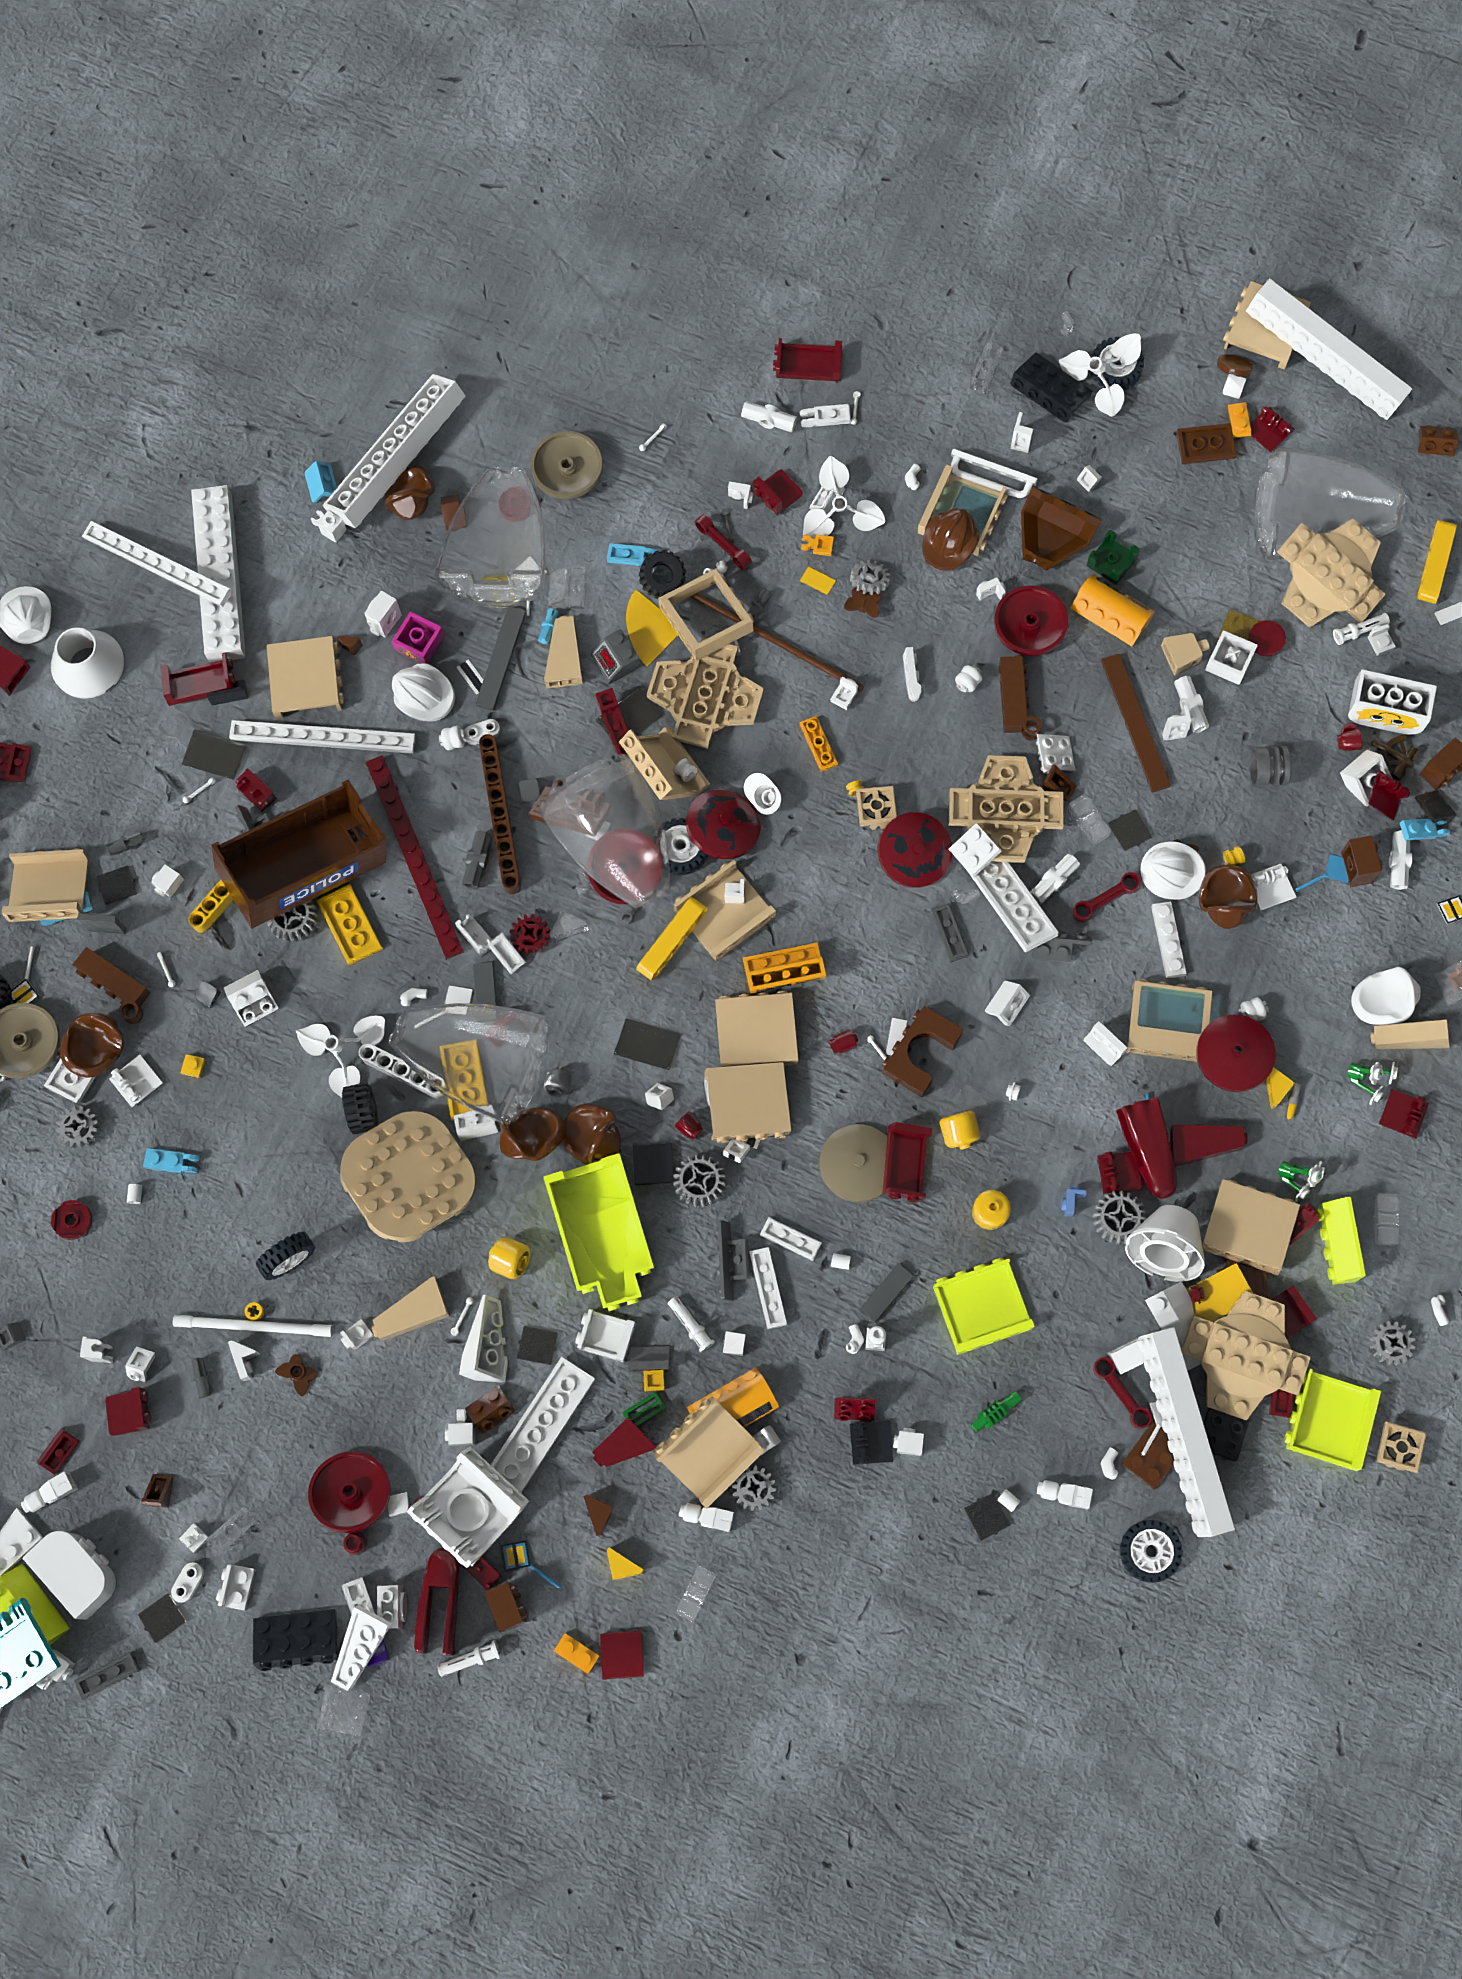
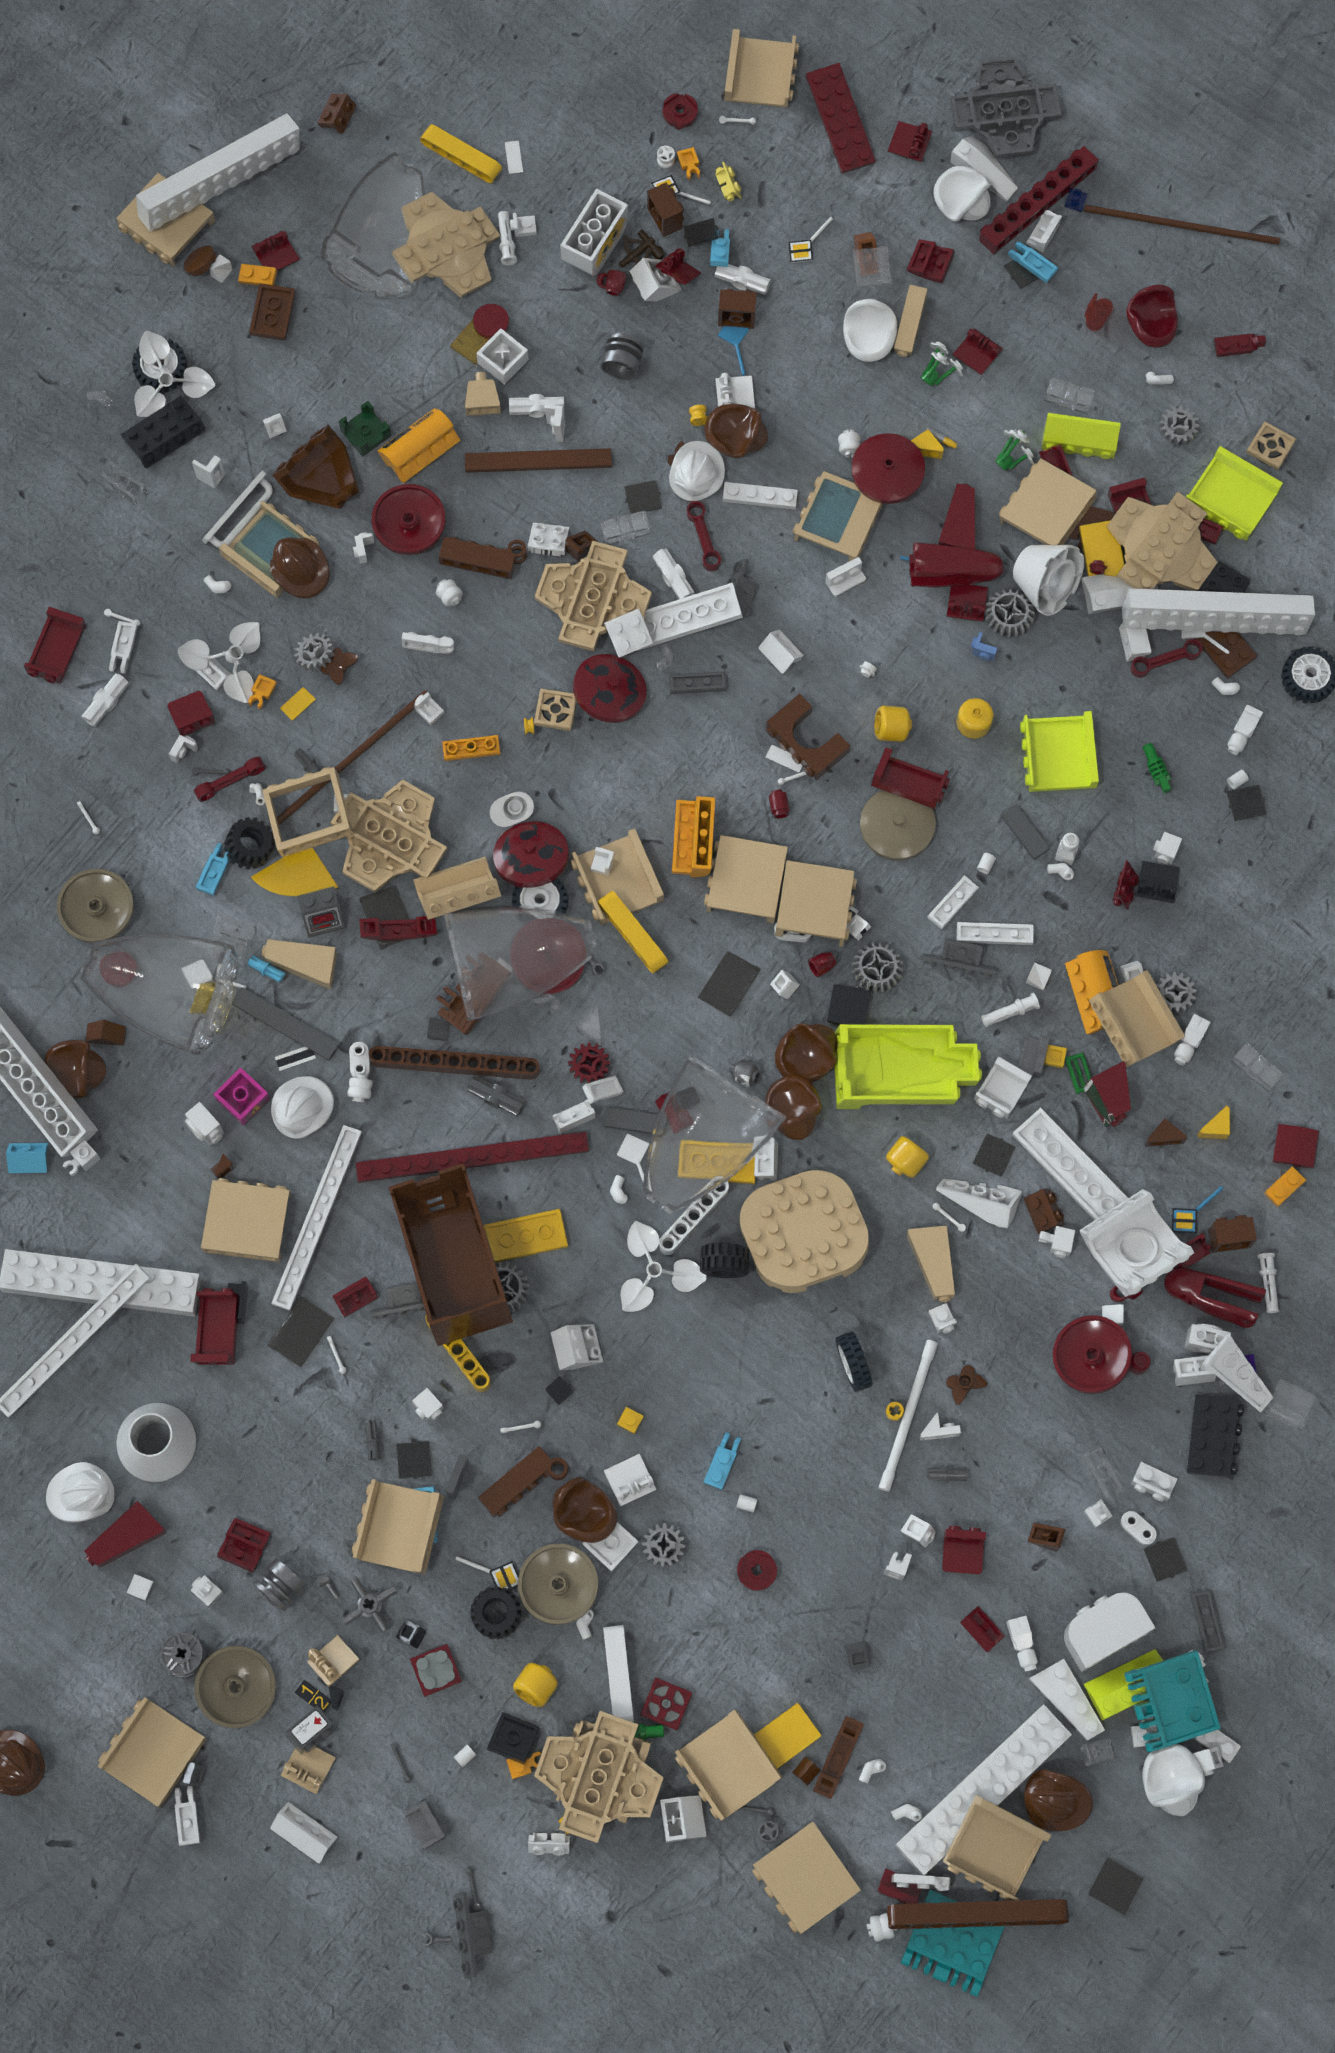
camera: 80 degrees left, 0 degrees up
(685, 770) = (466, 873): white wheel -> none

